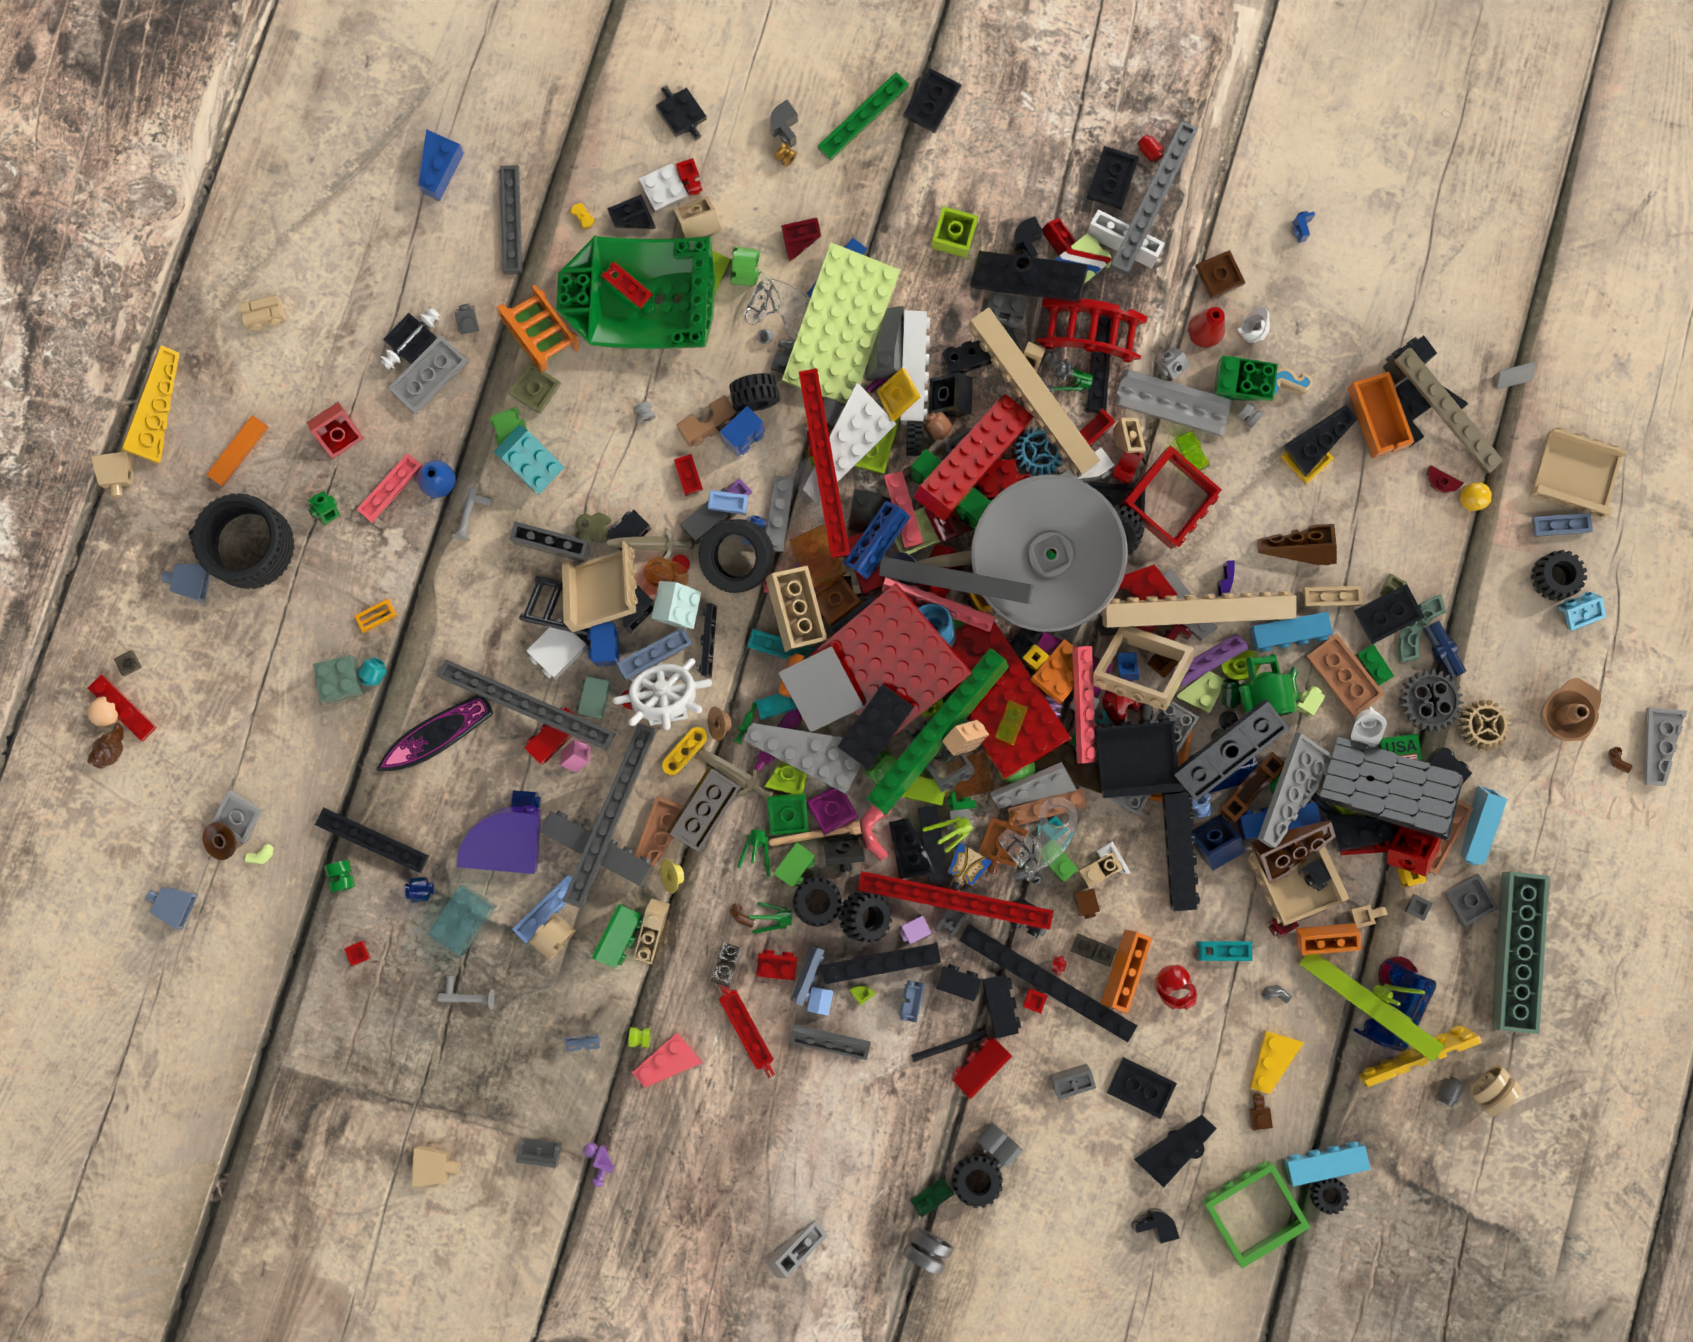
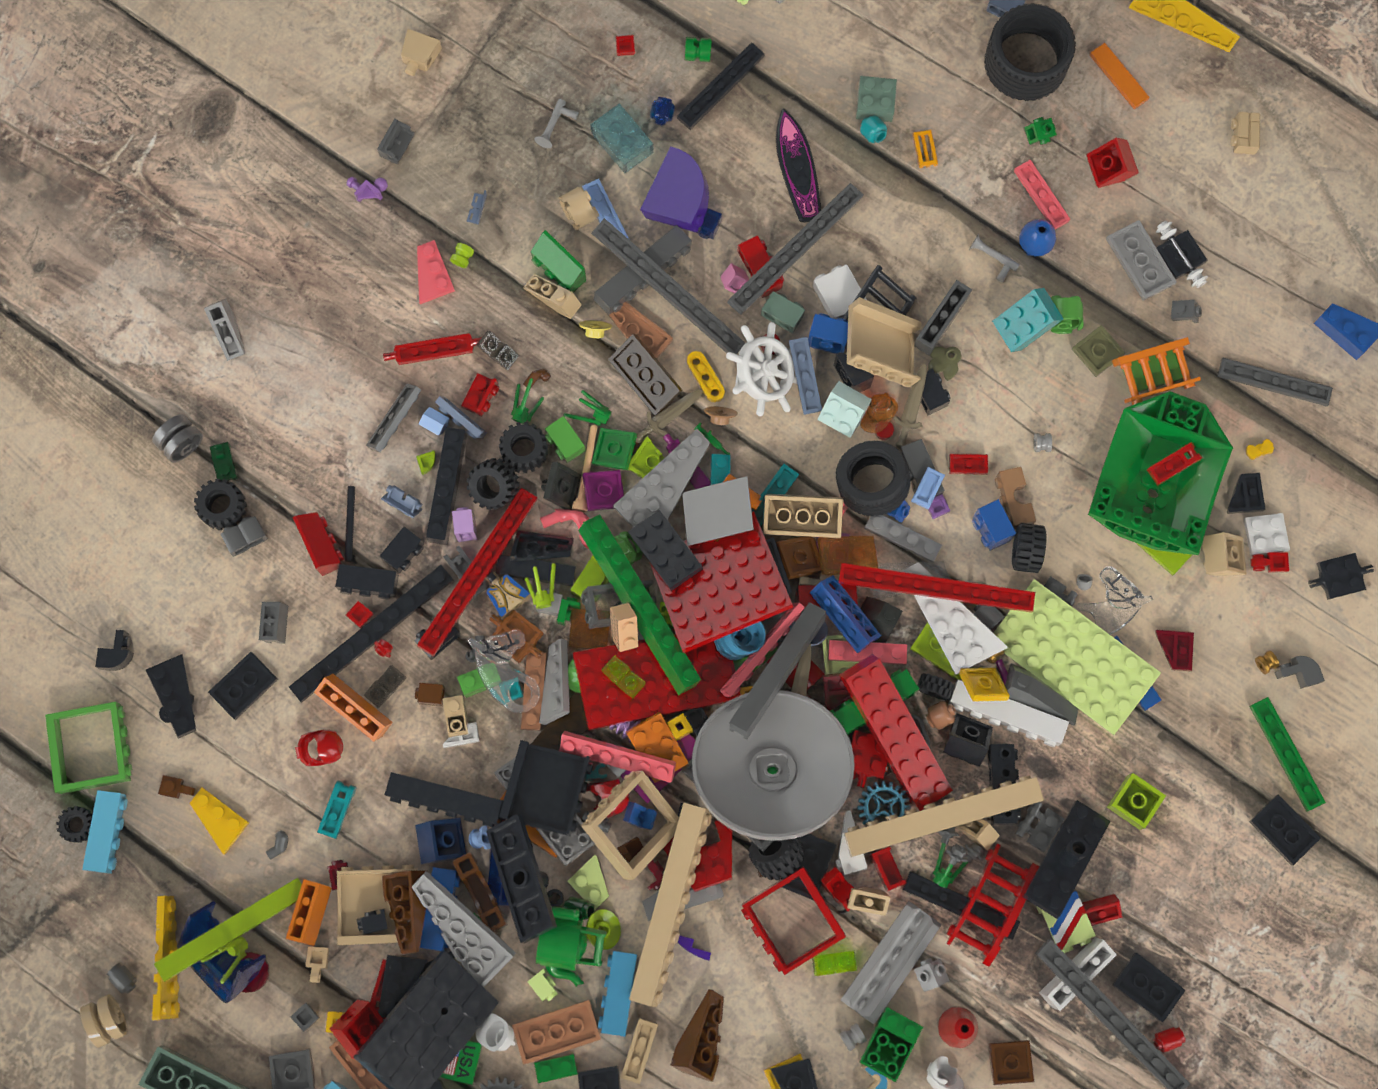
camera: 110 degrees right, 5 degrees down
(707, 640) = (802, 430): black piece -> none
(743, 266) = (1161, 581): bright green brick -> none
(1025, 235) = (1113, 872): black brick -> none
(1214, 657) = (619, 904): medium lavender plate -> none

